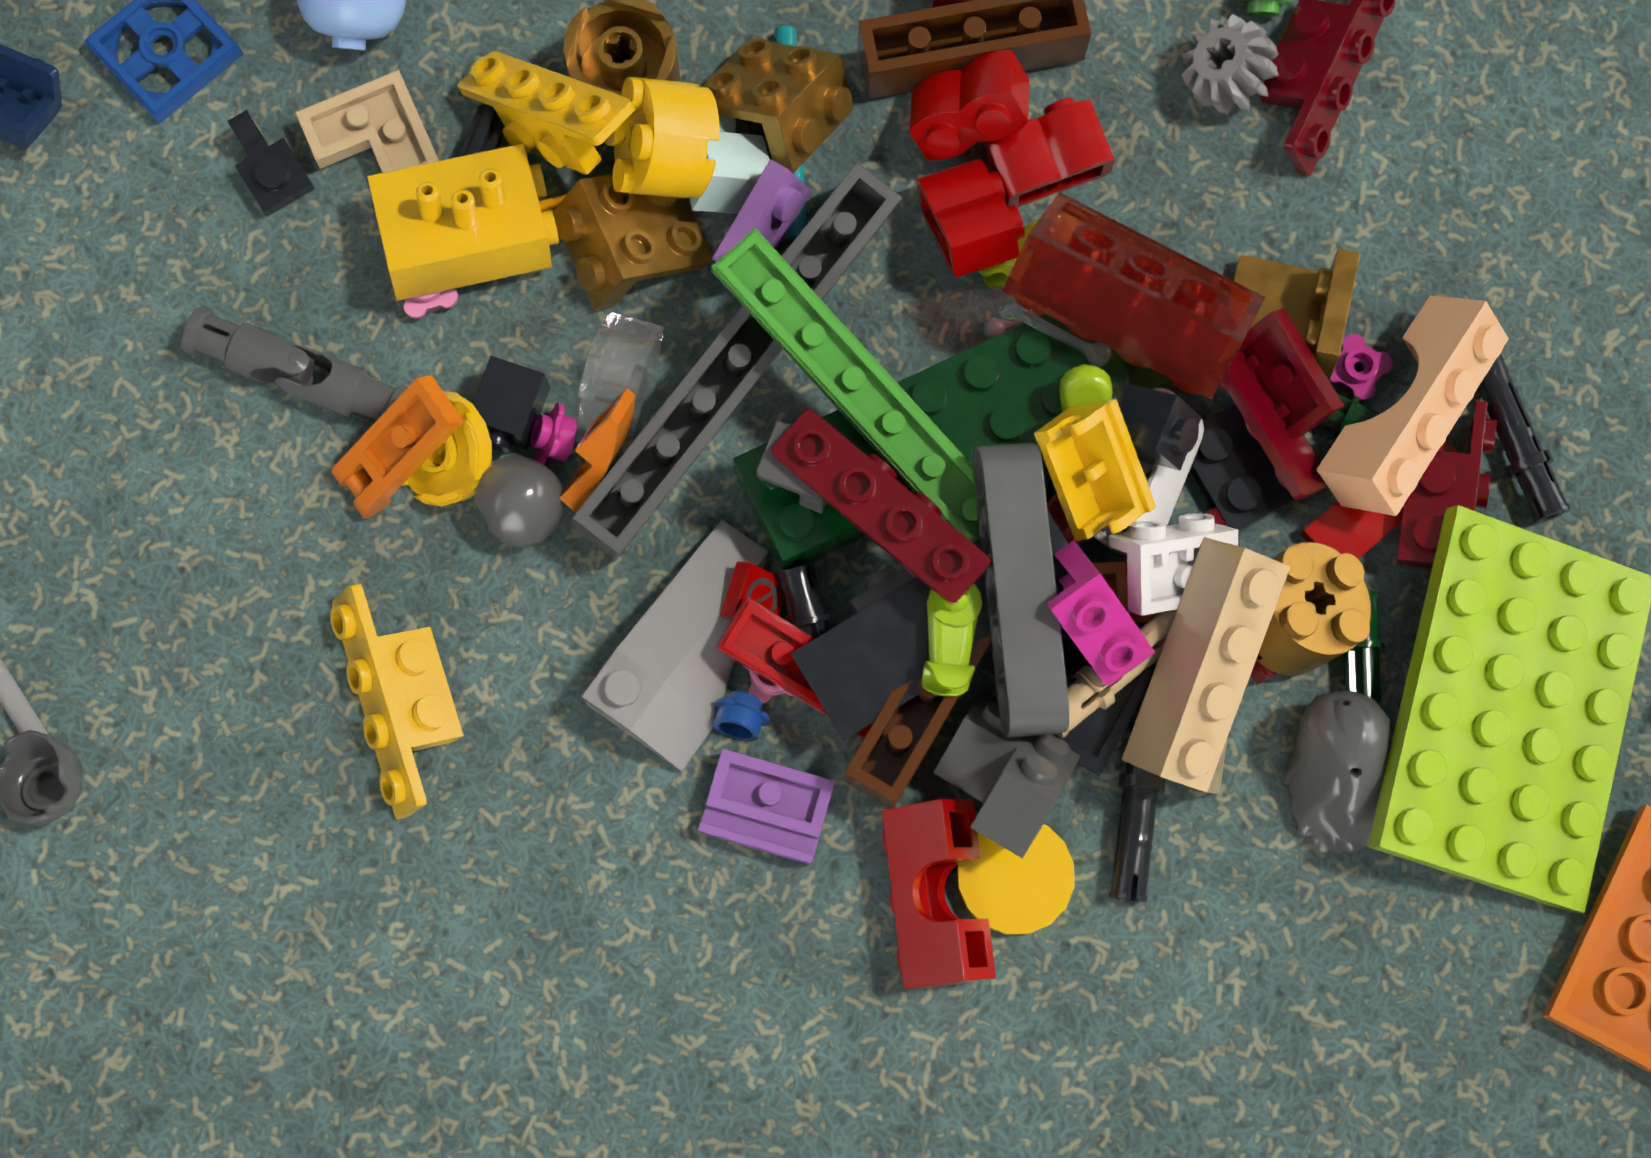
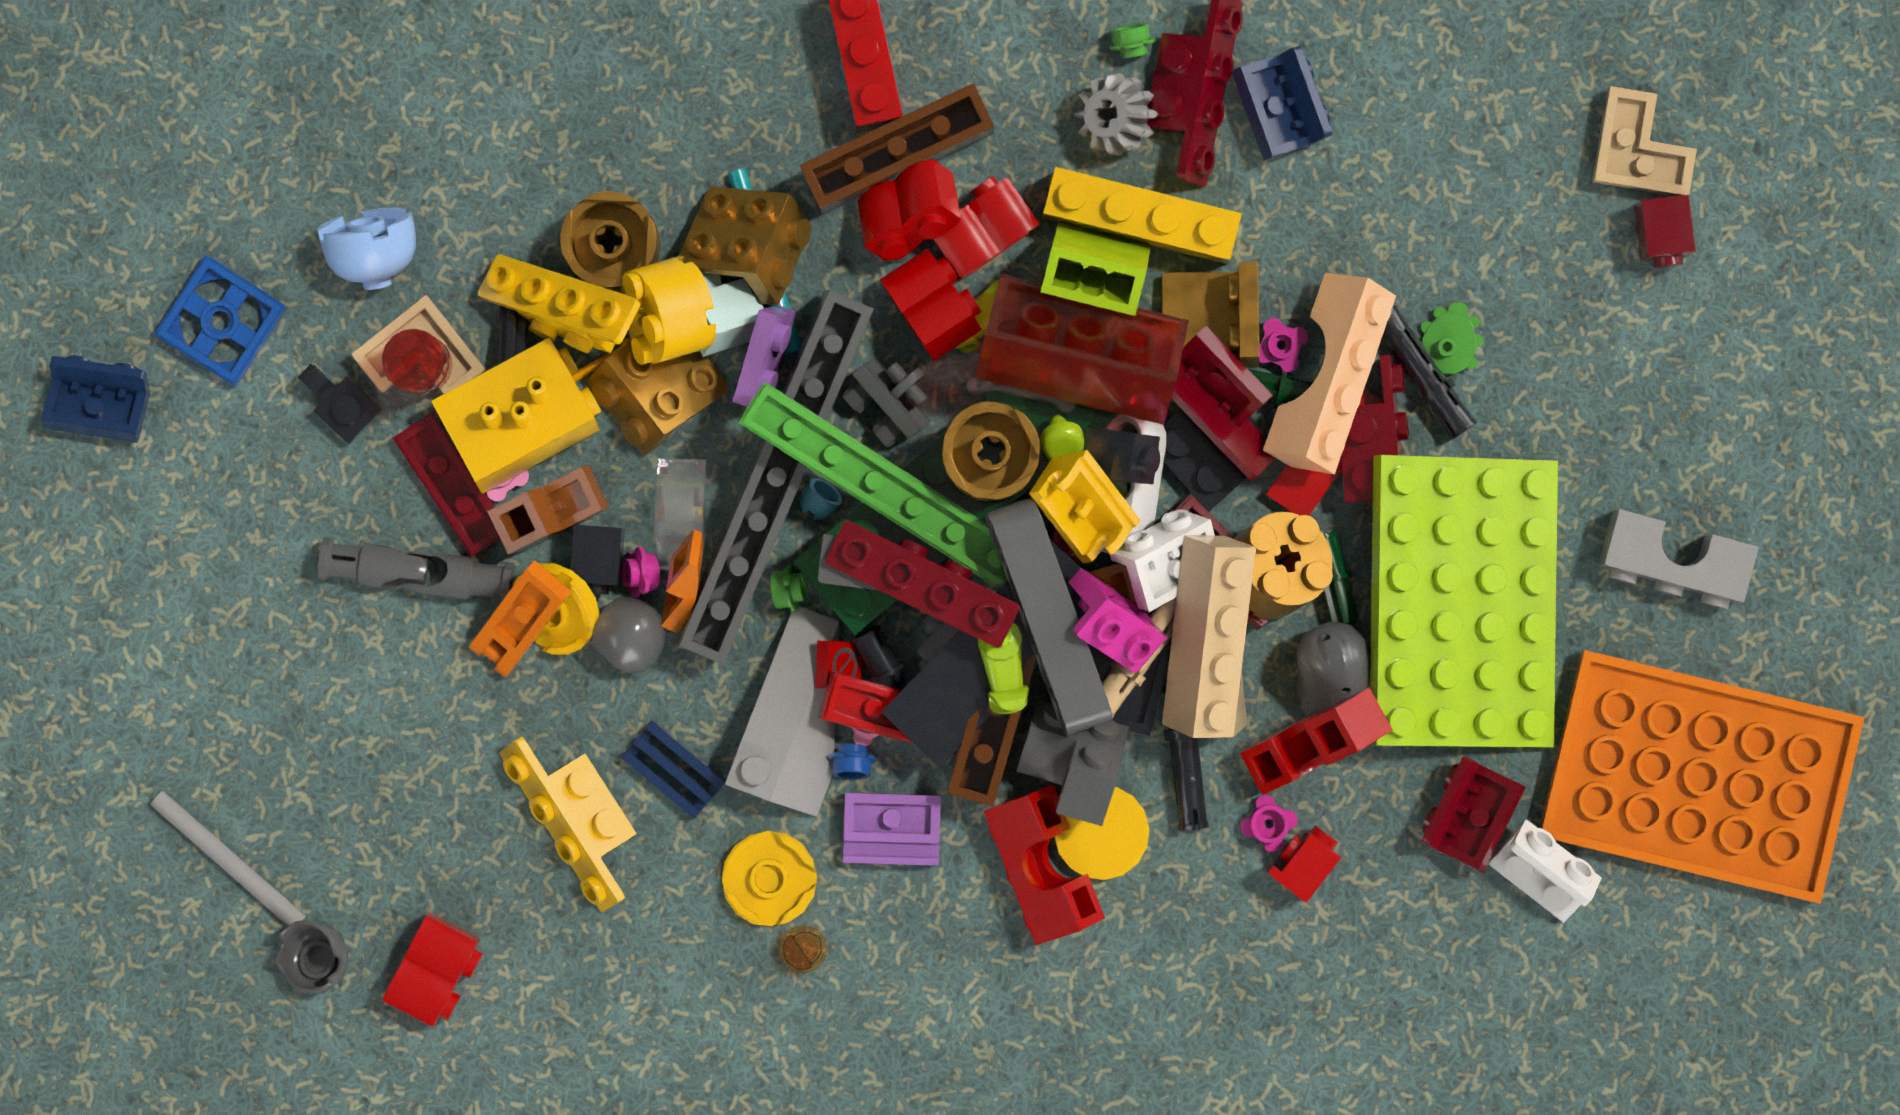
camera: 10 degrees left, 10 degrees up
(174, 834) = (432, 970): none -> red brick
(363, 127) = (417, 362): none -> clear red wheel
(366, 288) = (449, 482): none -> dark red tile
(458, 340) = (548, 510): none -> dark orange brick
(500, 632) = (642, 743): none -> dark blue tile
(623, 841) = (783, 864): none -> yellow tile
(623, 924) = (803, 949): none -> clear orange tile
(719, 496) = (788, 588): none -> bright green plate
(781, 404) = (820, 499): none -> medium azure hinge
(879, 294) = (895, 394): none -> dark grey hips
(1020, 353) = (1000, 425): none -> pearl gold brick
(1169, 213) = (1096, 268): none -> lime brick
(1221, 900) = (1272, 836): none -> dark pink plate
(1232, 182) = (1142, 215): none -> yellow brick
(1254, 975) = (1306, 863): none -> red brick
(1307, 823) = (1316, 740): none -> red arch
(1422, 102) = (1282, 103): none -> dark blue bracket
(1469, 967) = (1471, 813): none -> dark red bracket
(1546, 1060) = (1545, 870): none -> white bracket
(1560, 409) = (1452, 338): none -> bright green piece

